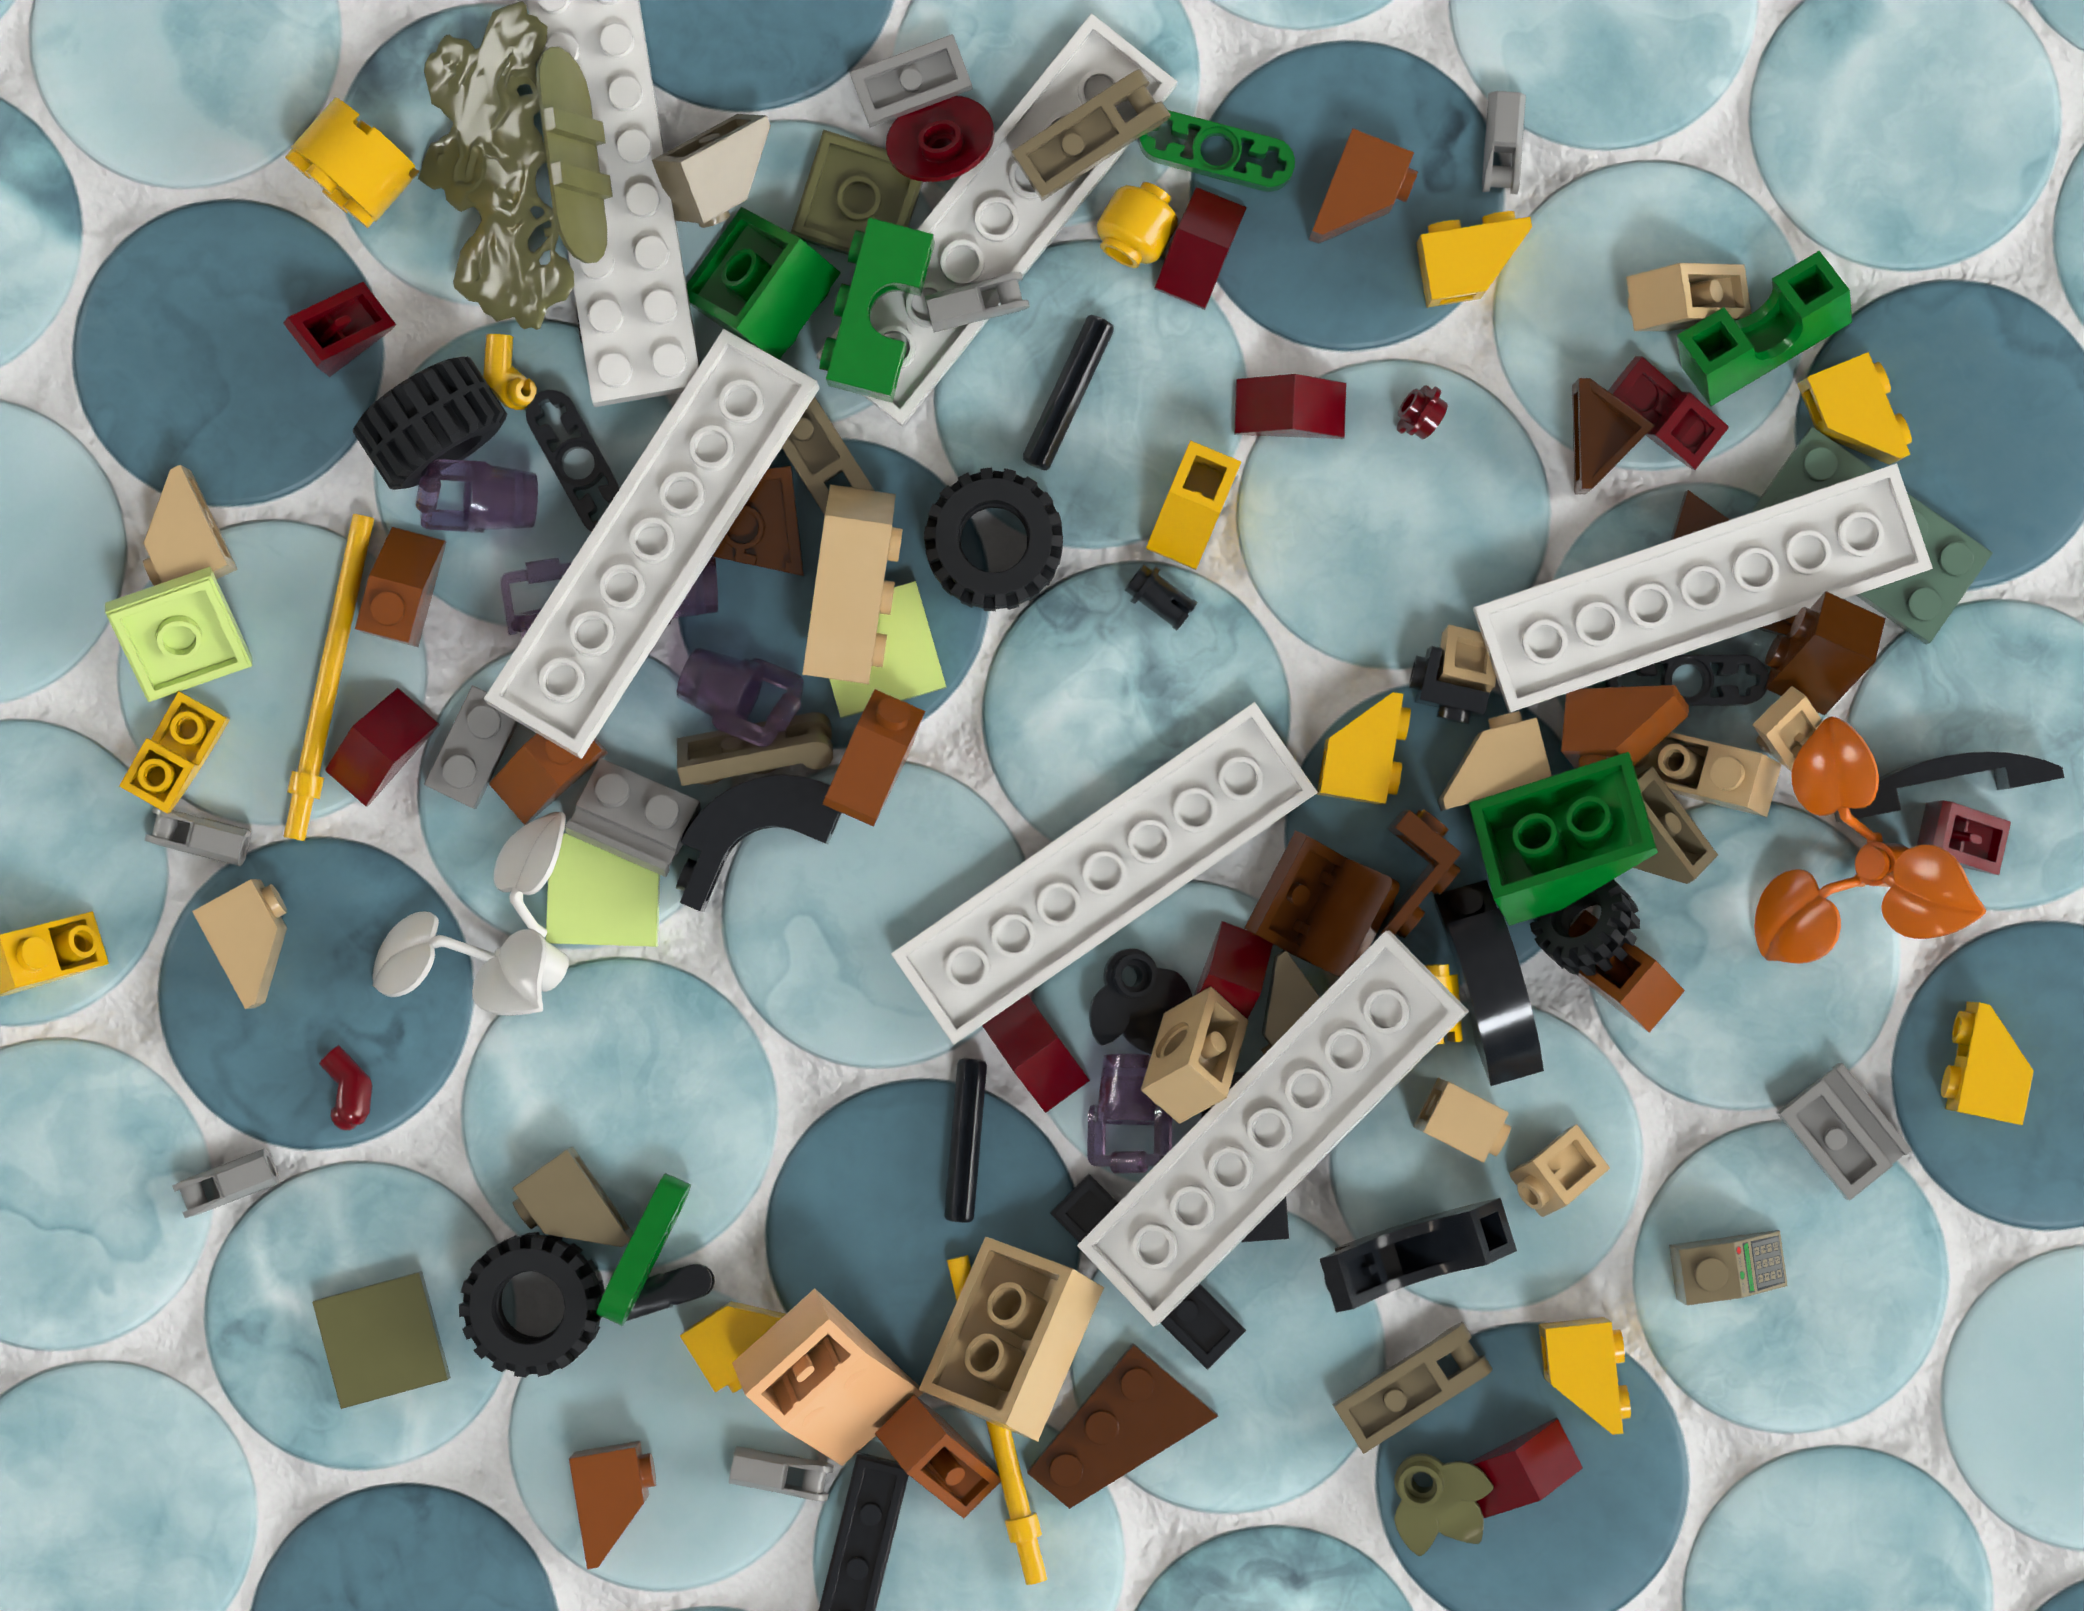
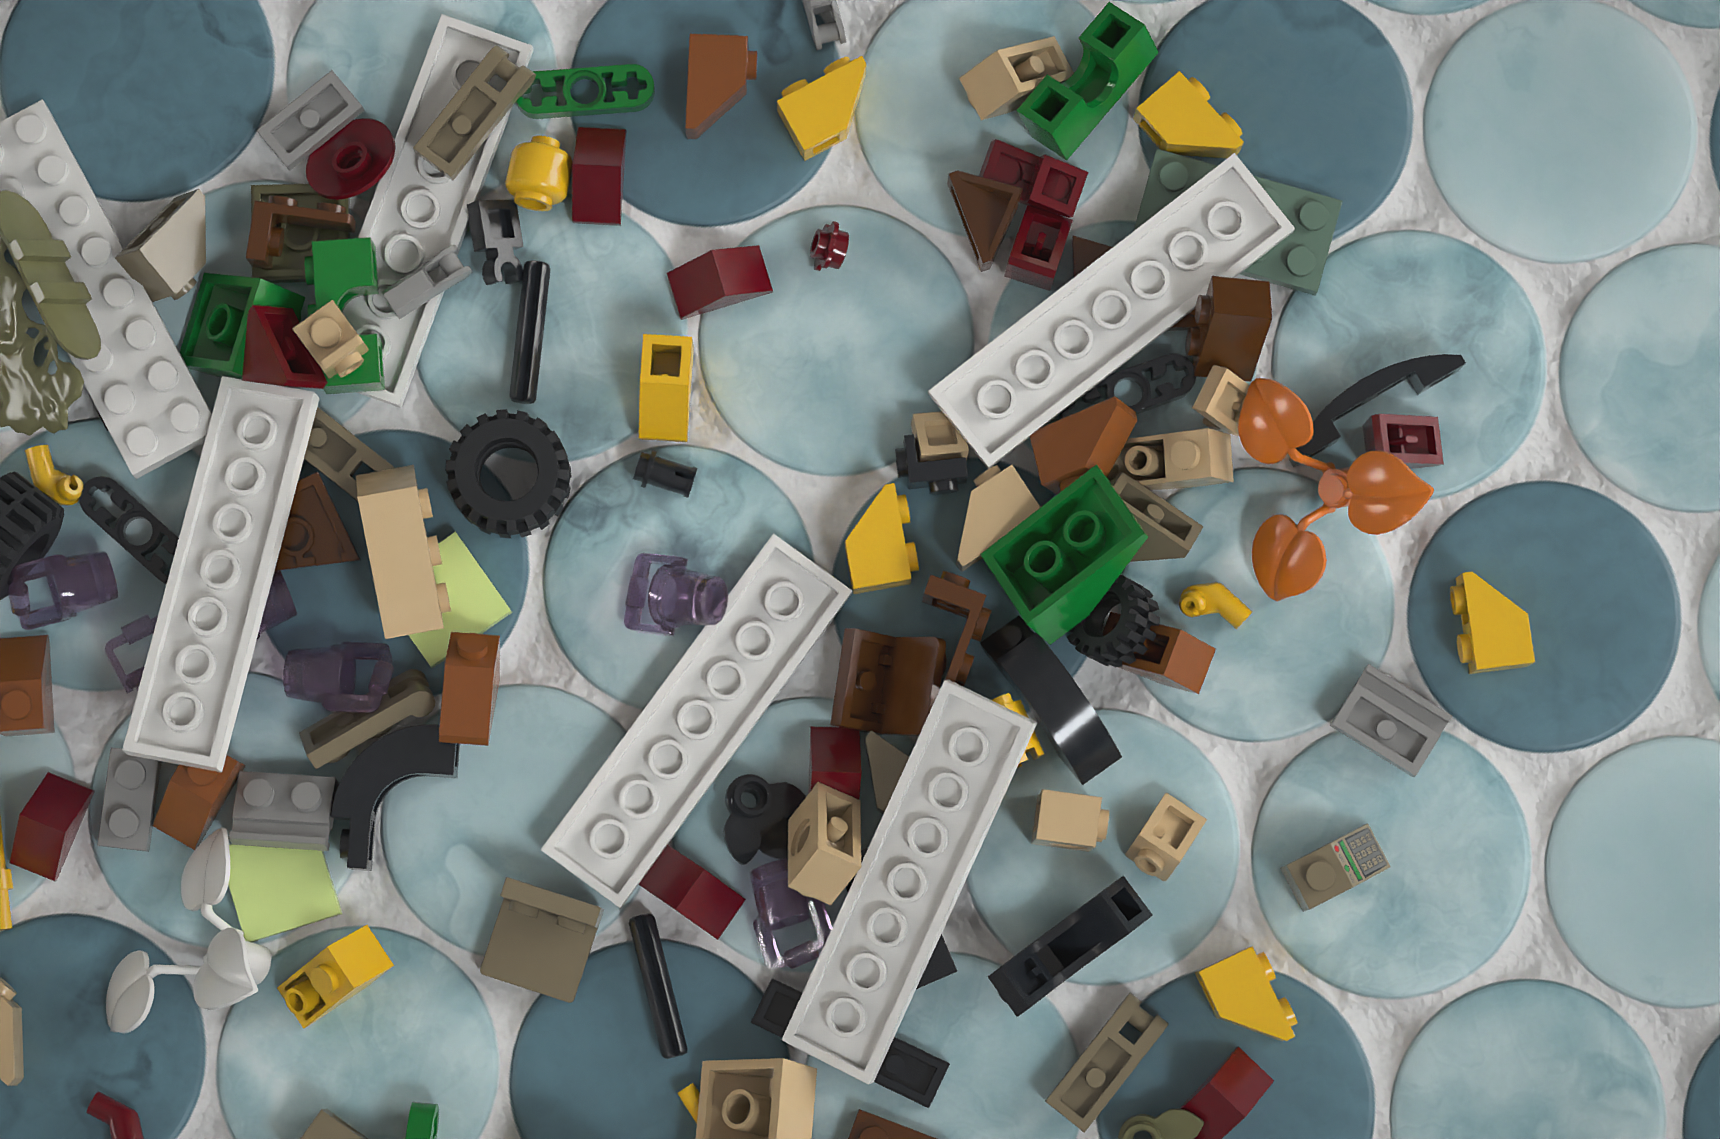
camera: 20 degrees left, 5 degrees down
(628, 1011) = (335, 976): none -> yellow slope
(794, 324) = (275, 351): none -> dark red slope
(821, 195) = (268, 240): none -> reddish brown bracket
(854, 334) = (332, 341): none -> tan bracket
(858, 1050) = (541, 940): none -> dark tan bracket
(1069, 273) = (497, 233): none -> black plate
(1127, 732) = (674, 596): none -> clear purple piece
(1646, 491) = (1038, 248): none -> dark red slope
(1699, 934) = (1211, 599): none -> yellow arm

